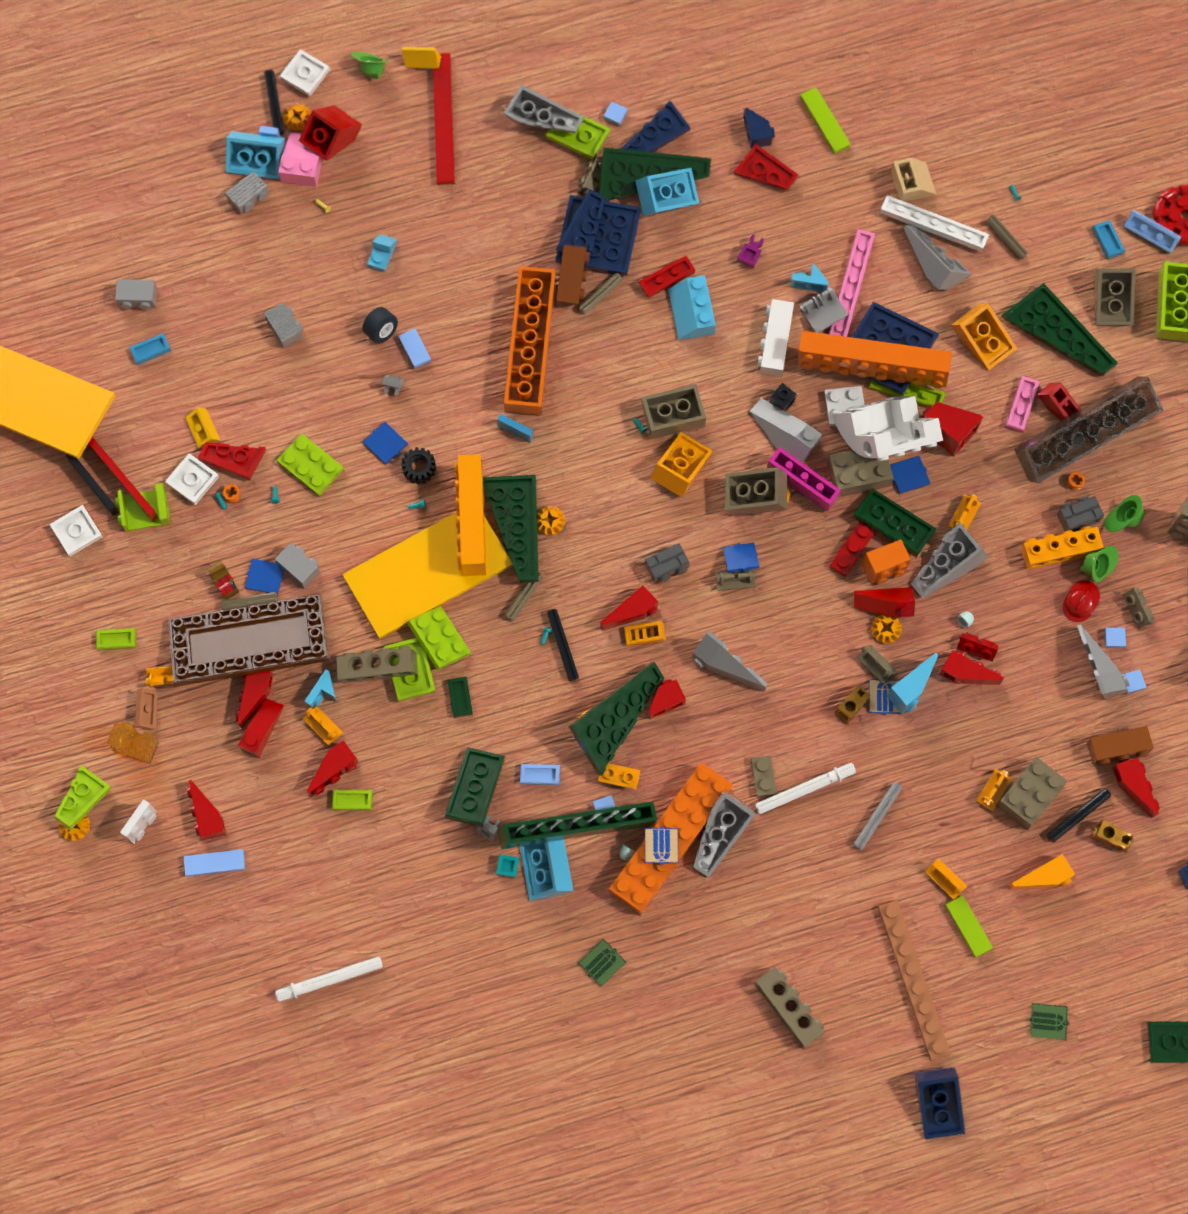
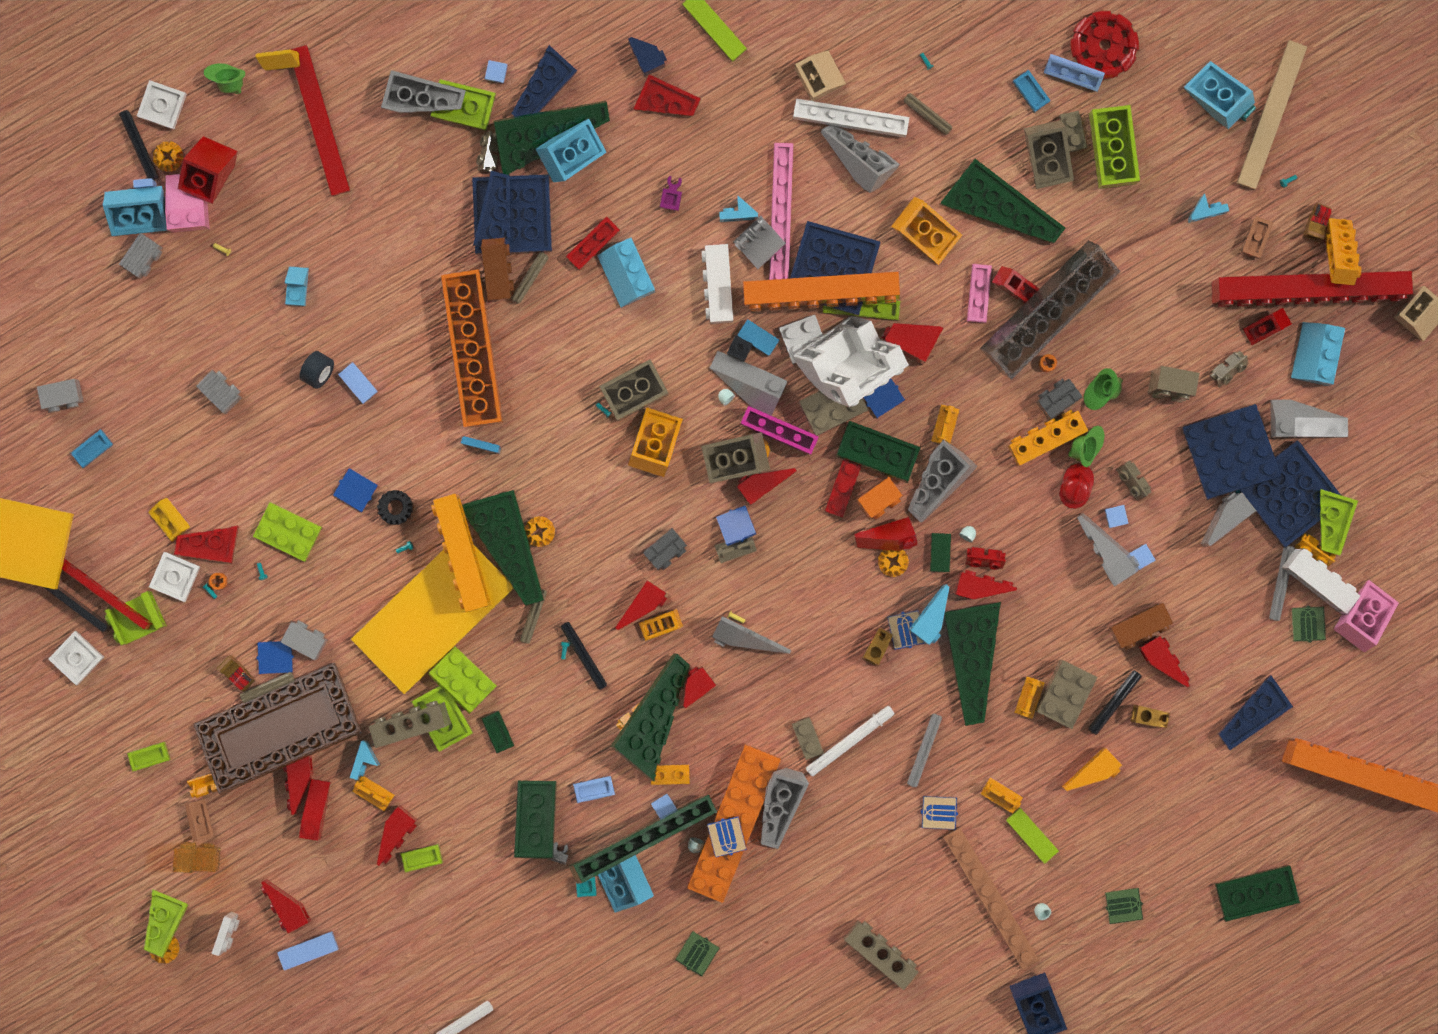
camera: 15 degrees left, 15 degrees up
(393, 381) = (346, 425): light grey tile -> none
(759, 439) = (725, 396): none -> light aqua hinge
(774, 525) = (760, 484): none -> red slope
(805, 396) = (758, 337): none -> dark azure tile
(876, 664) = (892, 600): dark tan hinge -> none
(879, 881) = (939, 812): none -> piece
(934, 630) = (940, 552): none -> dark green tile
(947, 727) = (972, 649): none -> dark green wing
(964, 1005) = (1042, 911): none -> light aqua hinge
(1142, 283) = (1074, 131): none -> dark tan plate

